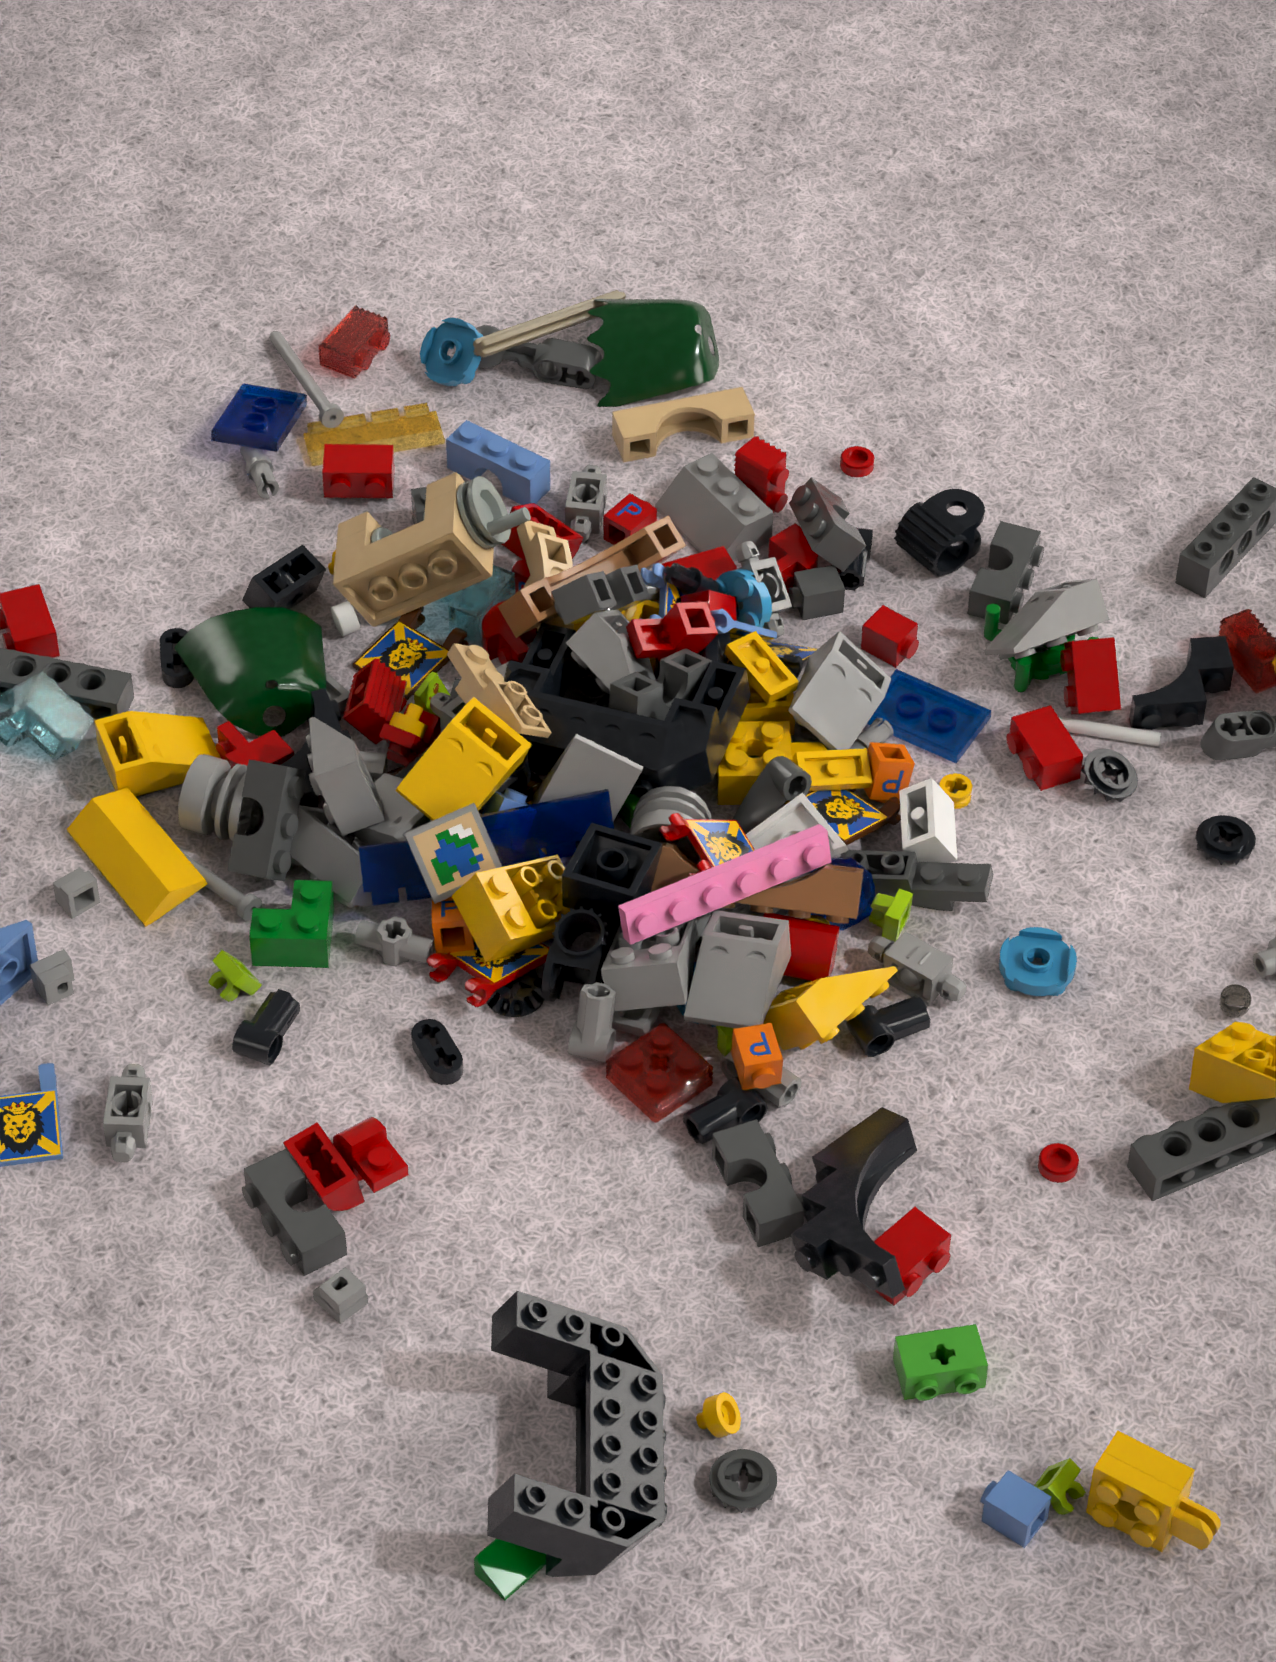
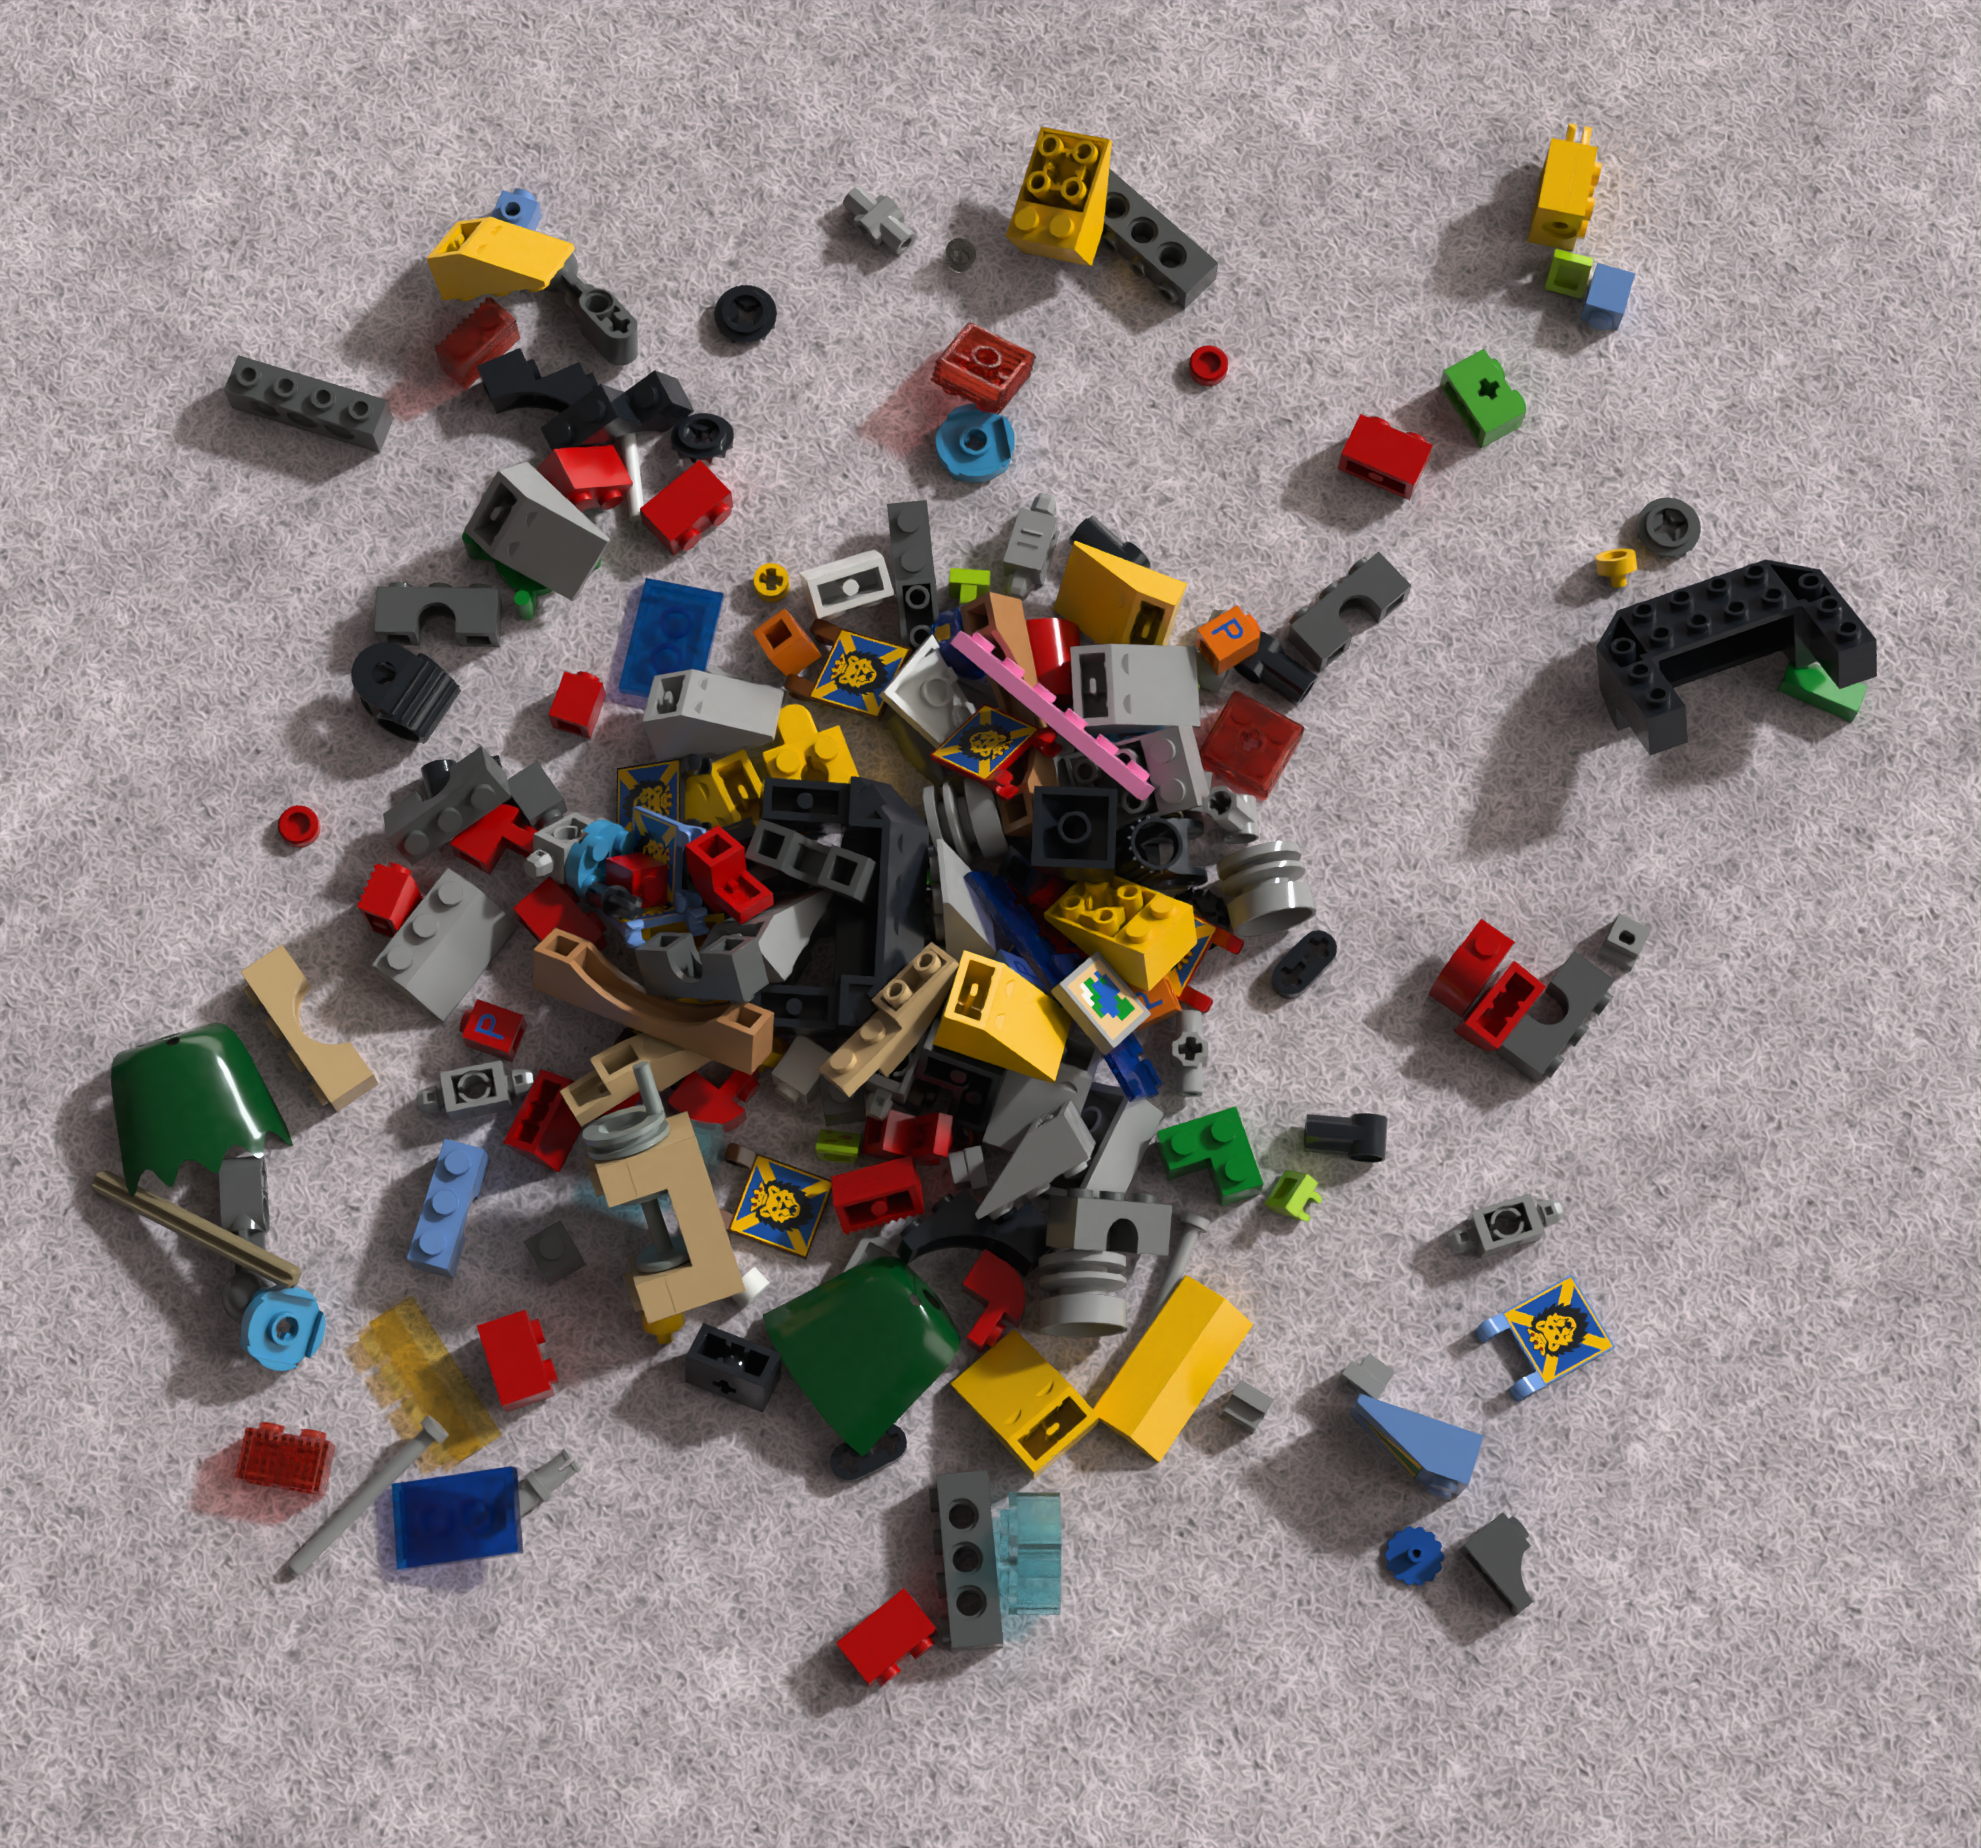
camera: 110 degrees left, 25 degrees up
(410, 721) = (915, 1133): yellow tile -> none
(511, 1023) = (1266, 889): none -> light grey wheel
(763, 667) = (719, 787): yellow plate -> none
(775, 785) = (882, 736): dark grey piece -> none
(836, 768) = (816, 689): yellow plate -> none
(839, 1203) = (1416, 500): black arch -> none
(1084, 977) = (983, 368): none -> clear red brick
(1145, 708) = (607, 413): none -> black arch

